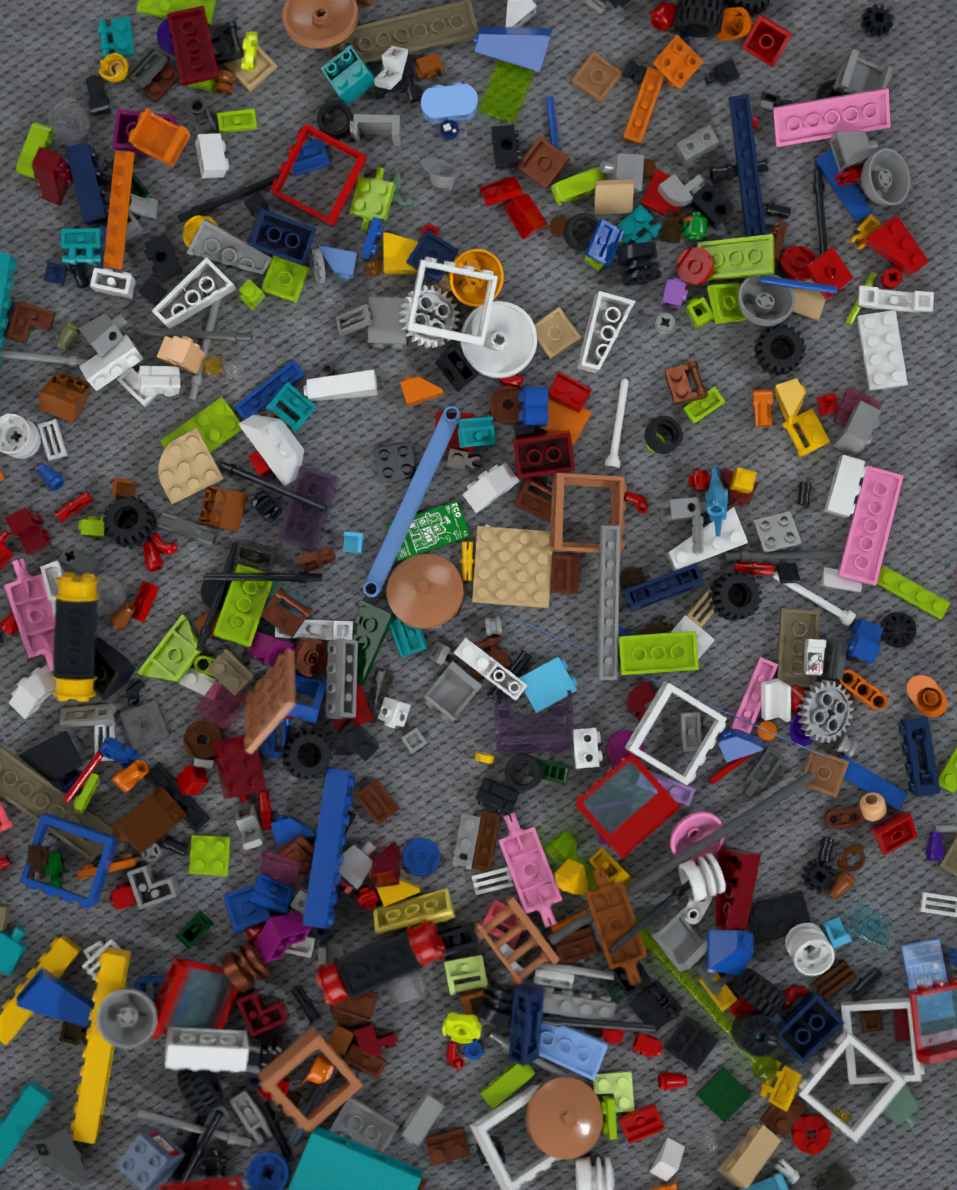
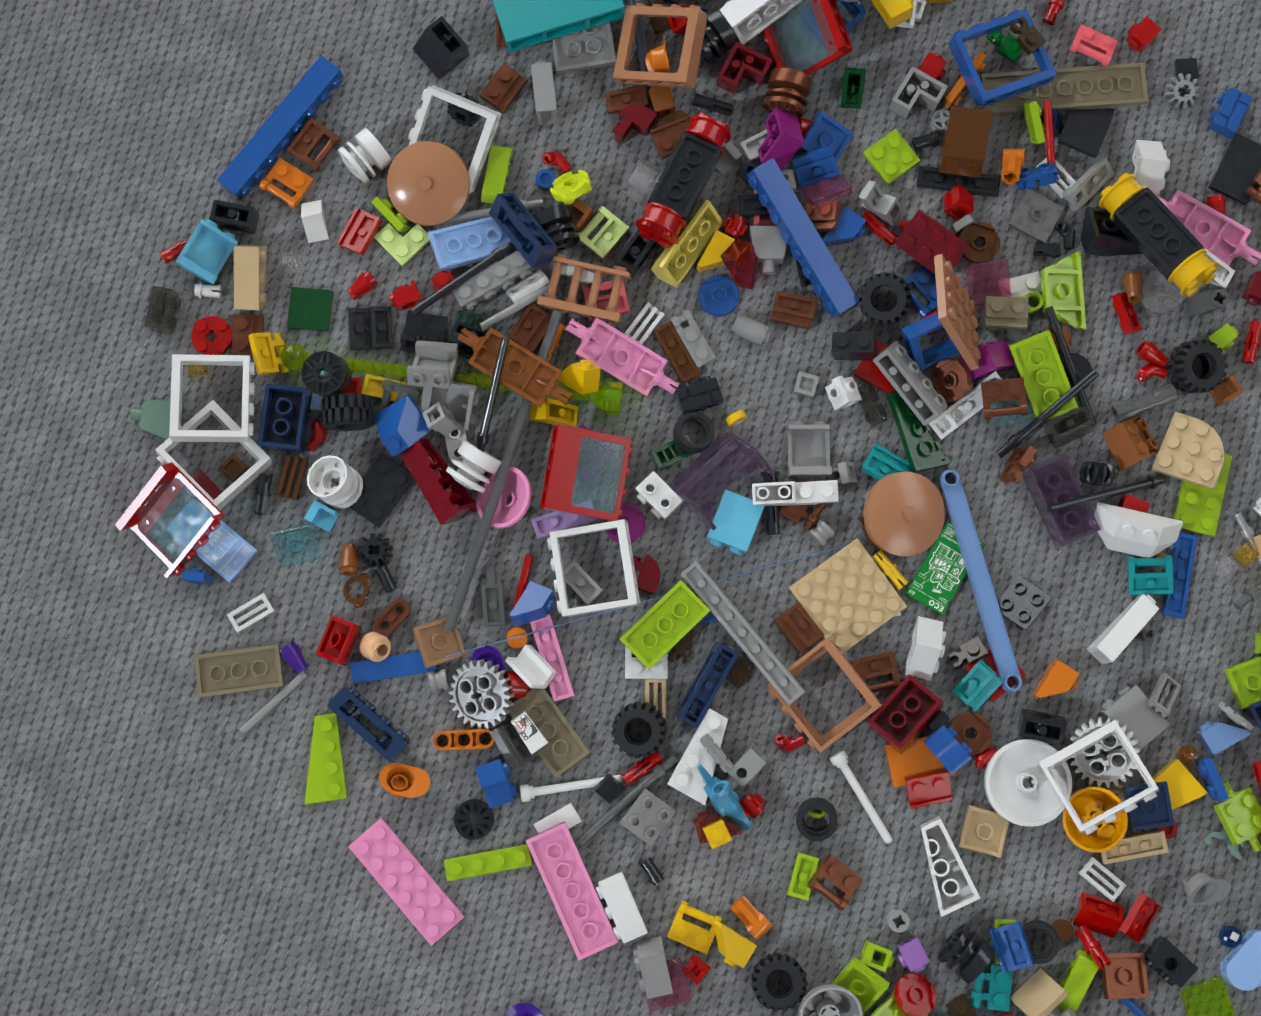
camera: 145 degrees right, 5 degrees down
(159, 693) = (1049, 250): none -> black pin
(353, 542) = (997, 505): medium azure panel -> none
(419, 812) = (751, 330): none -> light grey head
(460, 237) = (1136, 847): none -> tan plate
(505, 252) = (1087, 867): none -> white tile
(549, 198) = (1092, 947): none -> red pin
(671, 976) = (433, 364): none -> light grey panel
(697, 932) = (440, 419): none -> light grey brick

